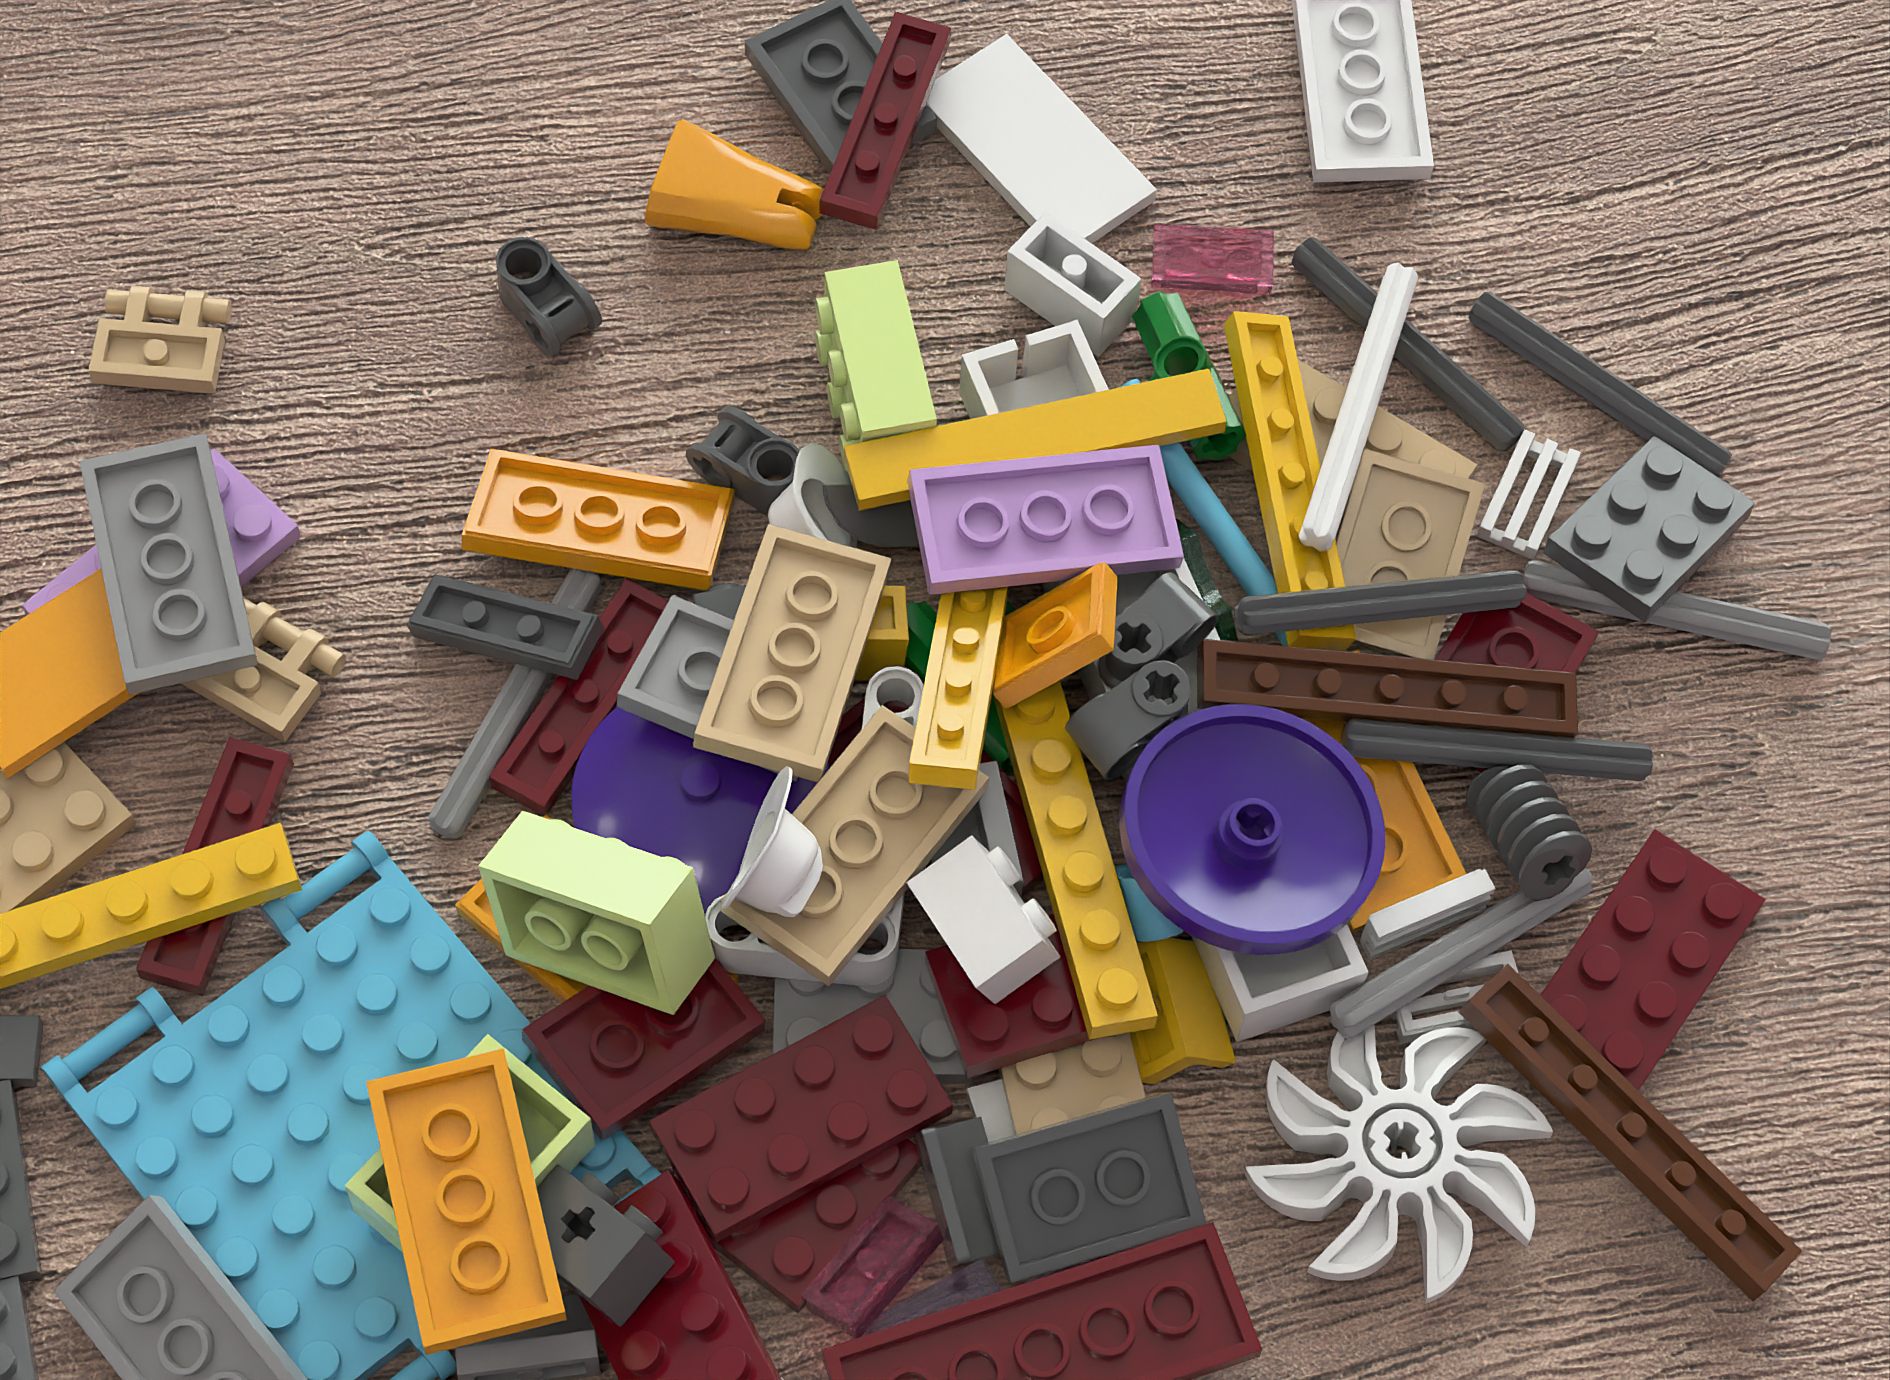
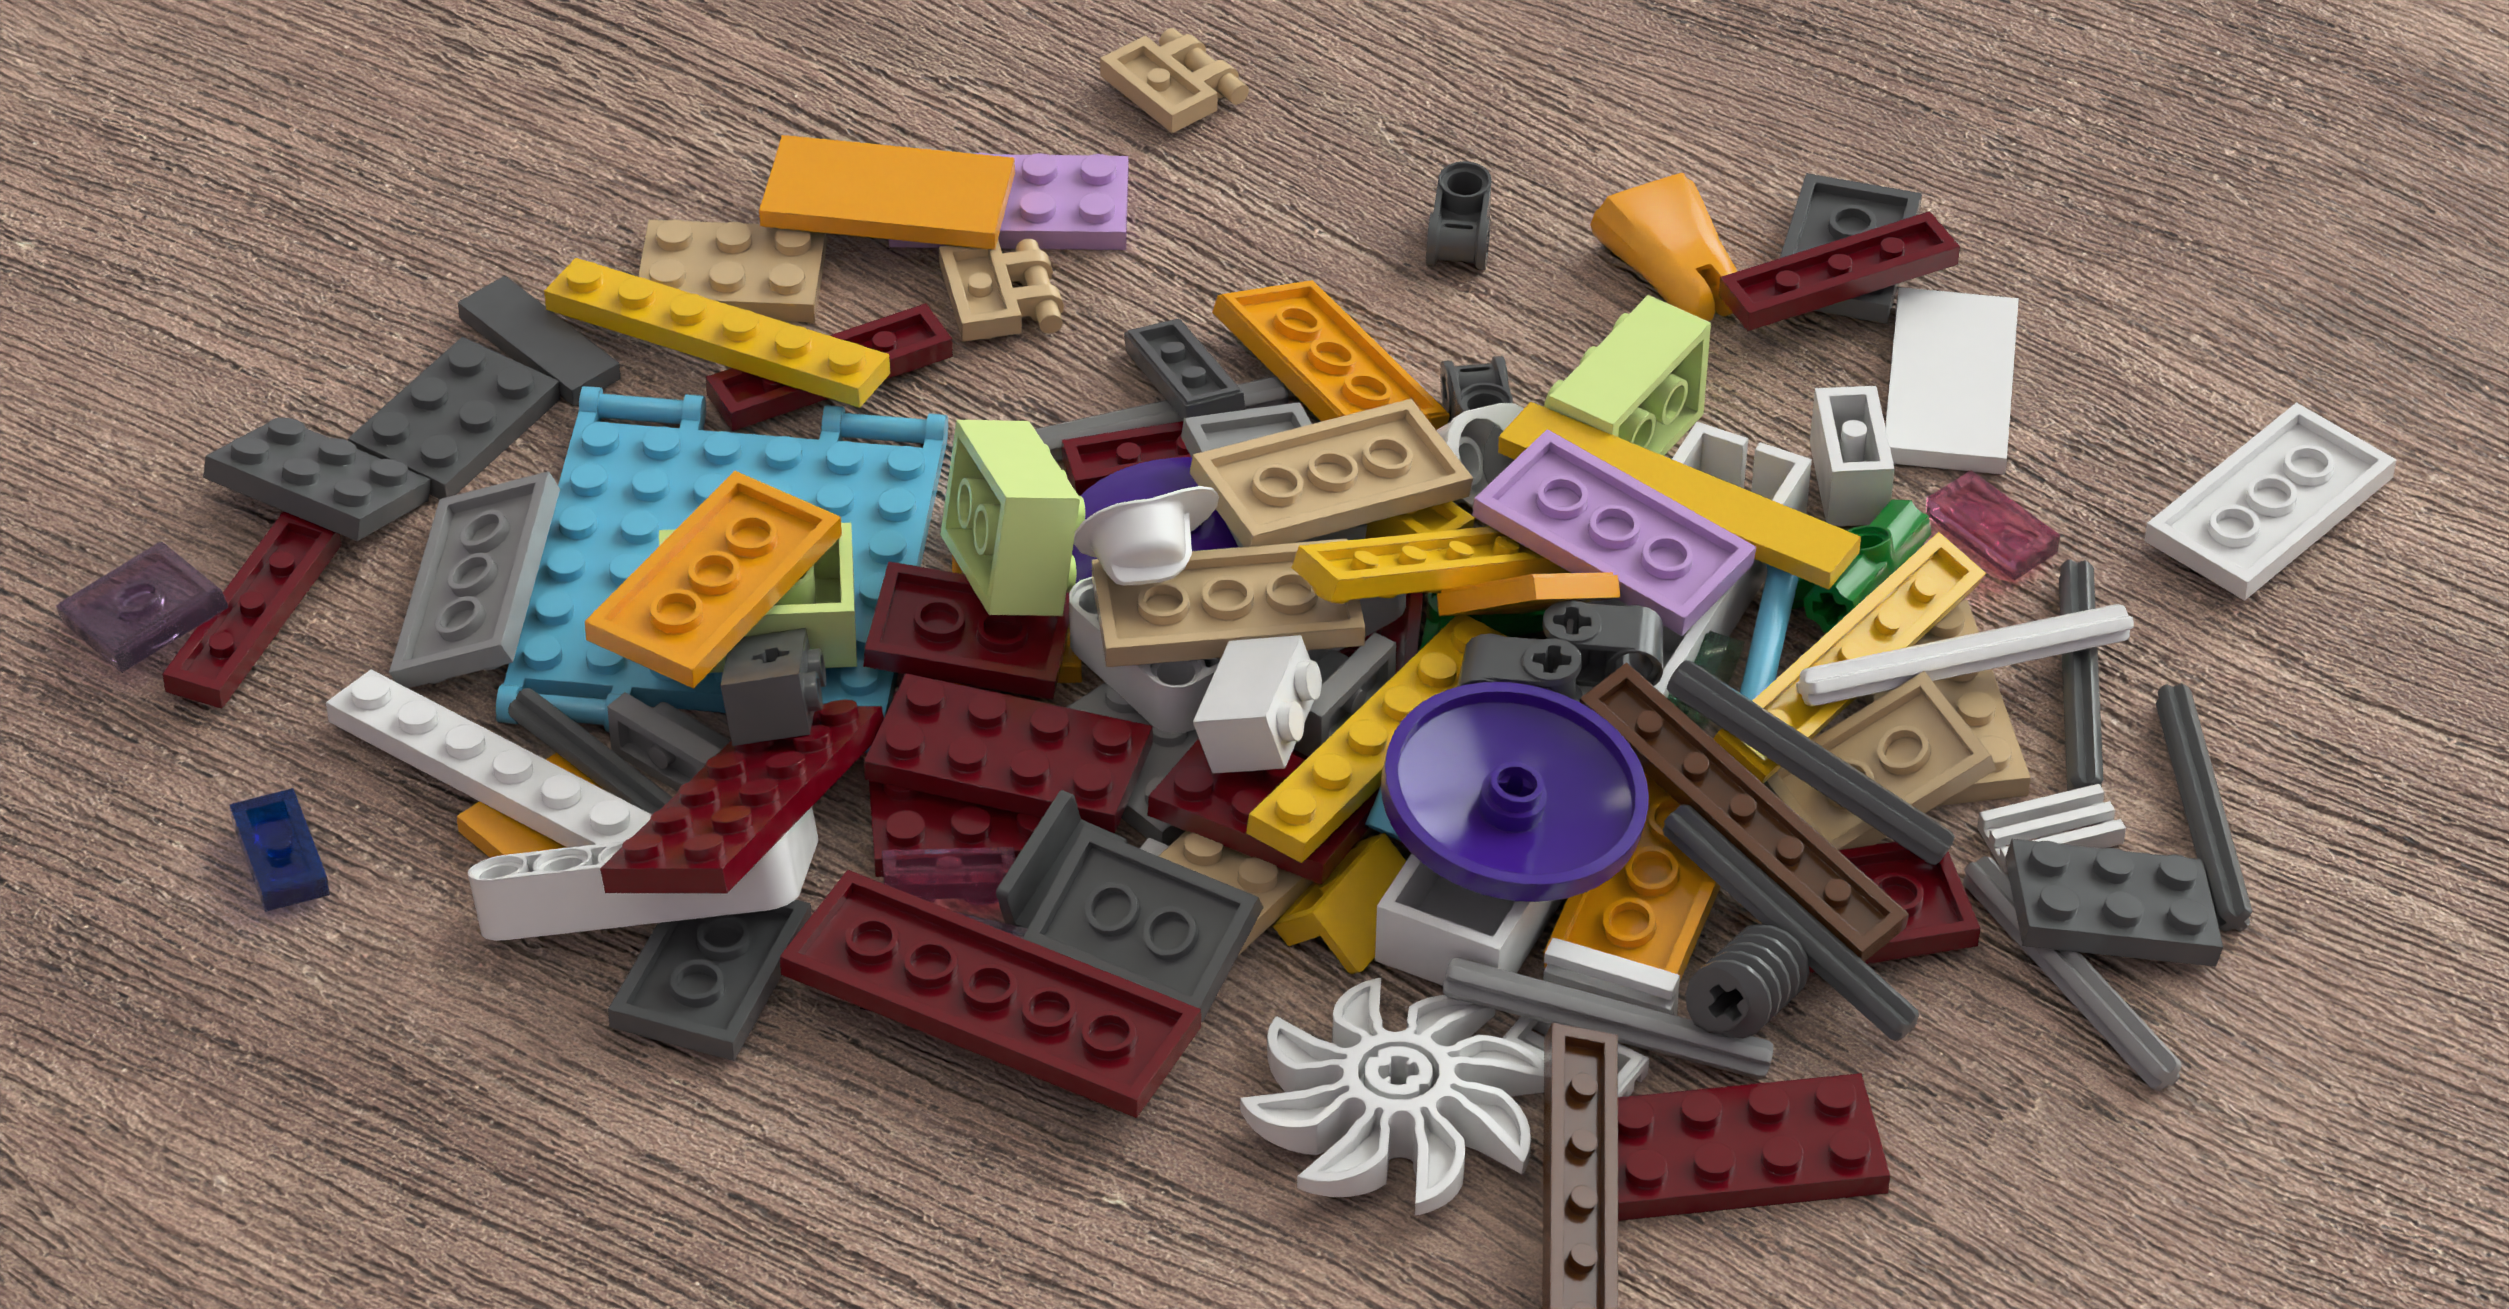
camera: 50 degrees right, 20 degrees down
(168, 564) = (998, 168): light grey plate -> none

